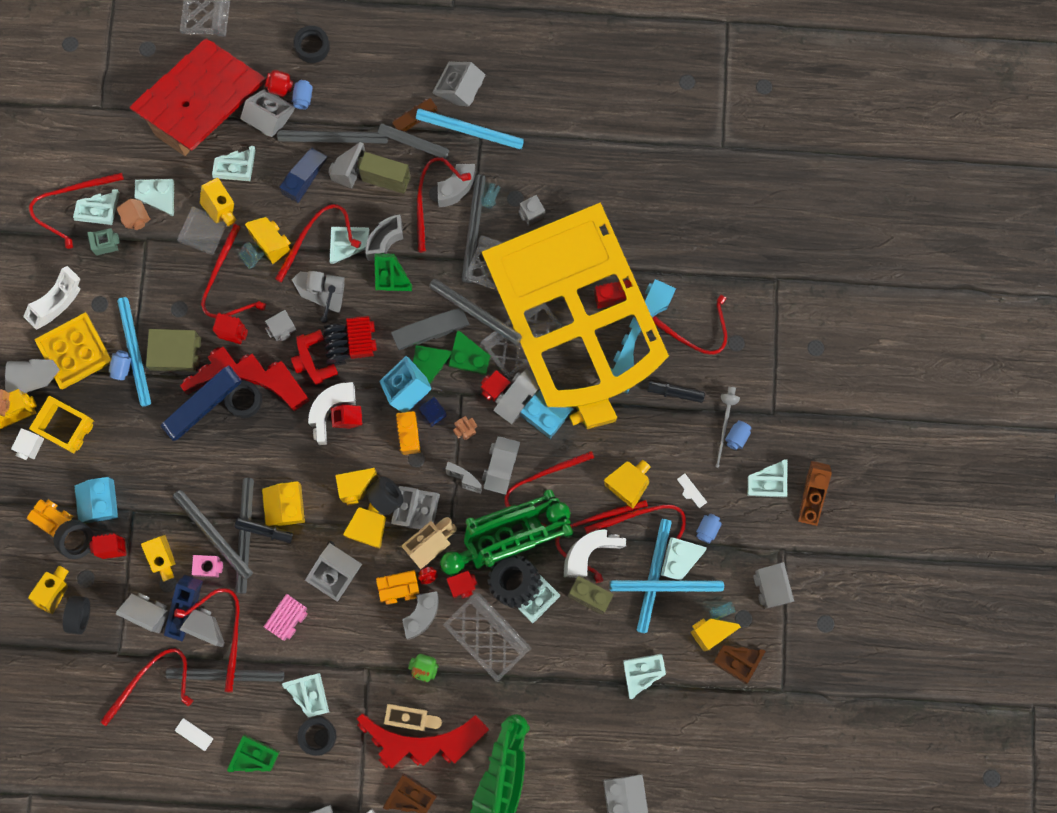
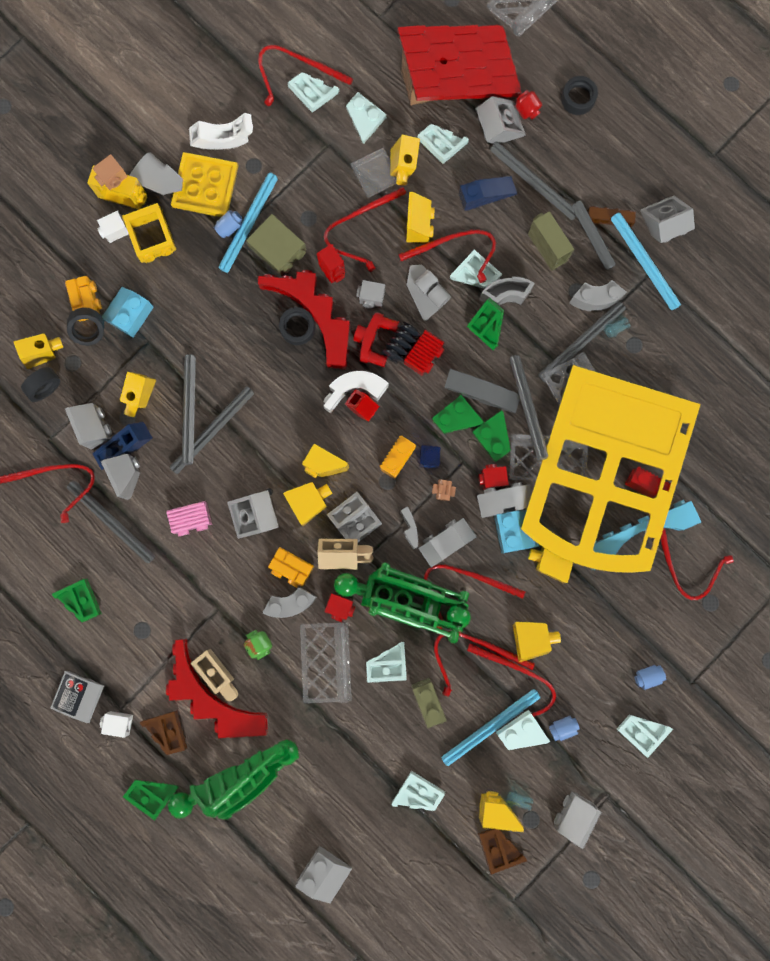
camera: 45 degrees right, 5 degrees up
(103, 241) = (295, 119): sand green window -> none
(108, 546) = (105, 353): red brick -> none
(133, 214) = (334, 116): nougat brick -> none
(194, 734) = (52, 546): white sticker -> none
(198, 566) = (159, 423): bright pink brick -> none
(201, 403) = (263, 303): dark blue beam -> none
(233, 653) = (122, 517): red piece -> none
(250, 255) = (394, 220): clear light blue tile -> none
(272, 532) = (228, 438): black axle -> none
(283, 504) = (259, 431): yellow slope -> none
(302, 94) = (538, 128): medium blue brick -> none
(305, 726) = (121, 626): black tyre -> none
(309, 694) = (158, 590): light aqua wing -> none
(331, 289) = (433, 298): black hinge -> none
(345, 167) = (522, 213): light grey slope -> none
(384, 495) = (339, 490): black tyre -> none
(405, 385) = (426, 419): medium azure slope -> none
(420, 219) = (535, 315): red piece -> none
(427, 575) = (320, 577): red plate -> none
(524, 592) = (385, 655): black tyre -> none
(531, 210) = (639, 365): light grey brick -> none
(578, 555) = (452, 660): white arch -> none
(635, 585) = (493, 744): medium azure axle -> none
(675, 391) = (629, 599): black axle -> none
(691, 491) = (575, 687): white sticker -> none
(729, 399) = (667, 643): light grey sword -> none
(814, 492) = (672, 773): dark orange slope -> none

